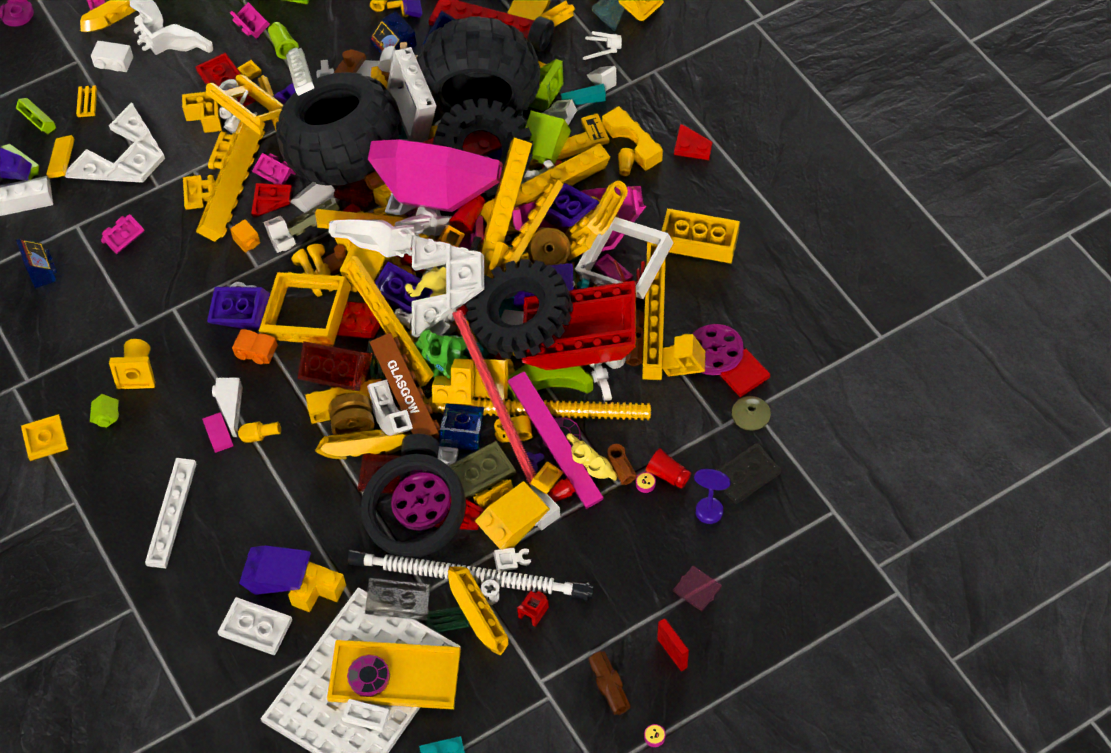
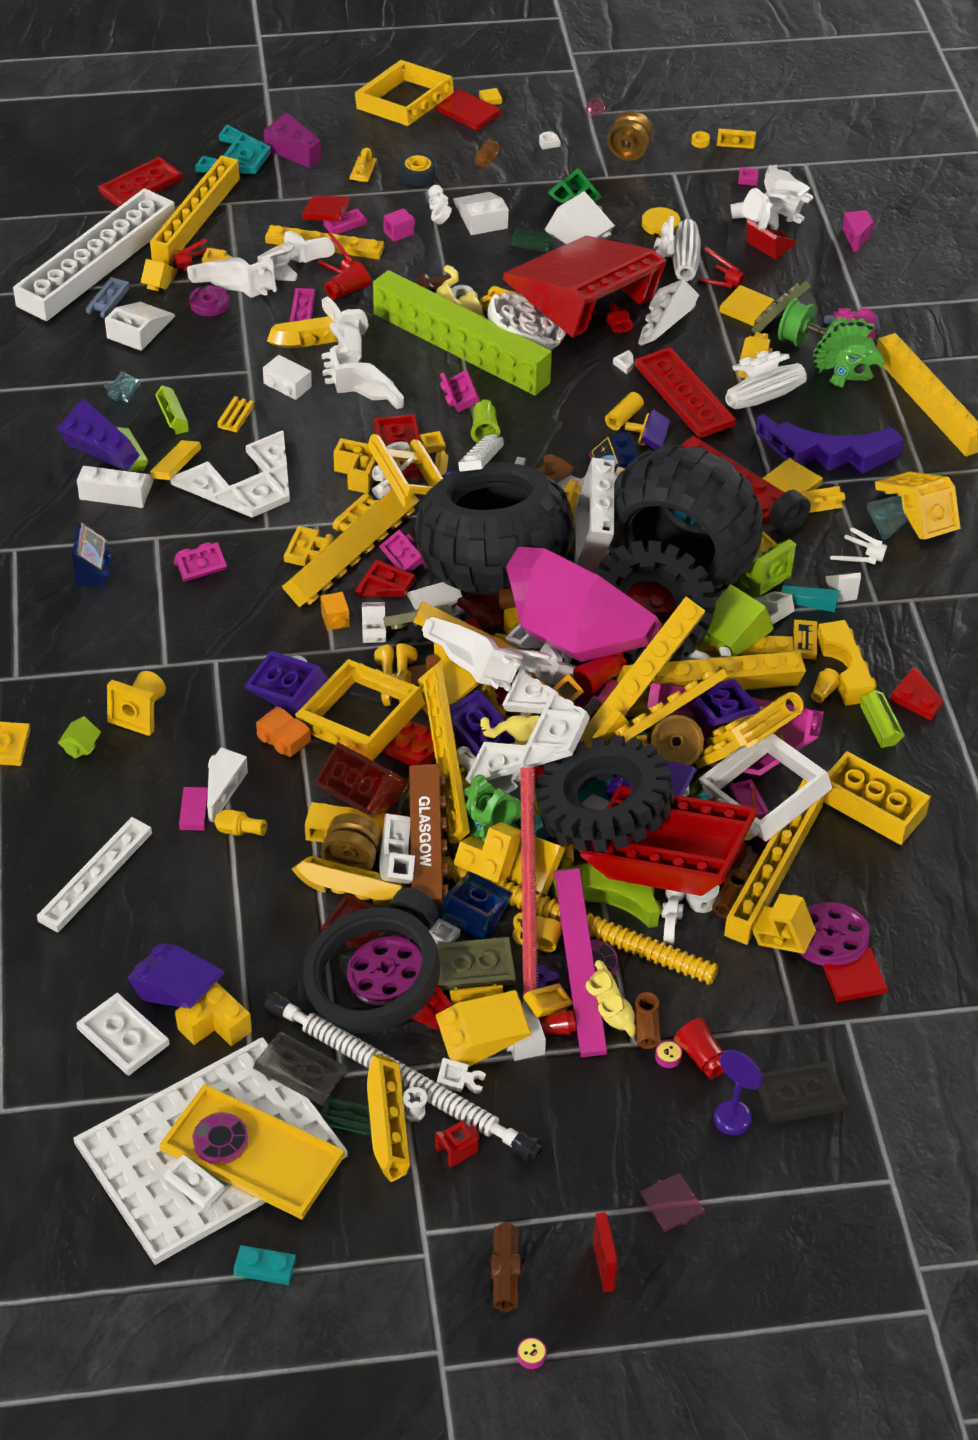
camera: 20 degrees right, 10 degrees down
(676, 172) = (881, 719): none -> lime piece
(751, 419) = (841, 1033): olive dish -> none

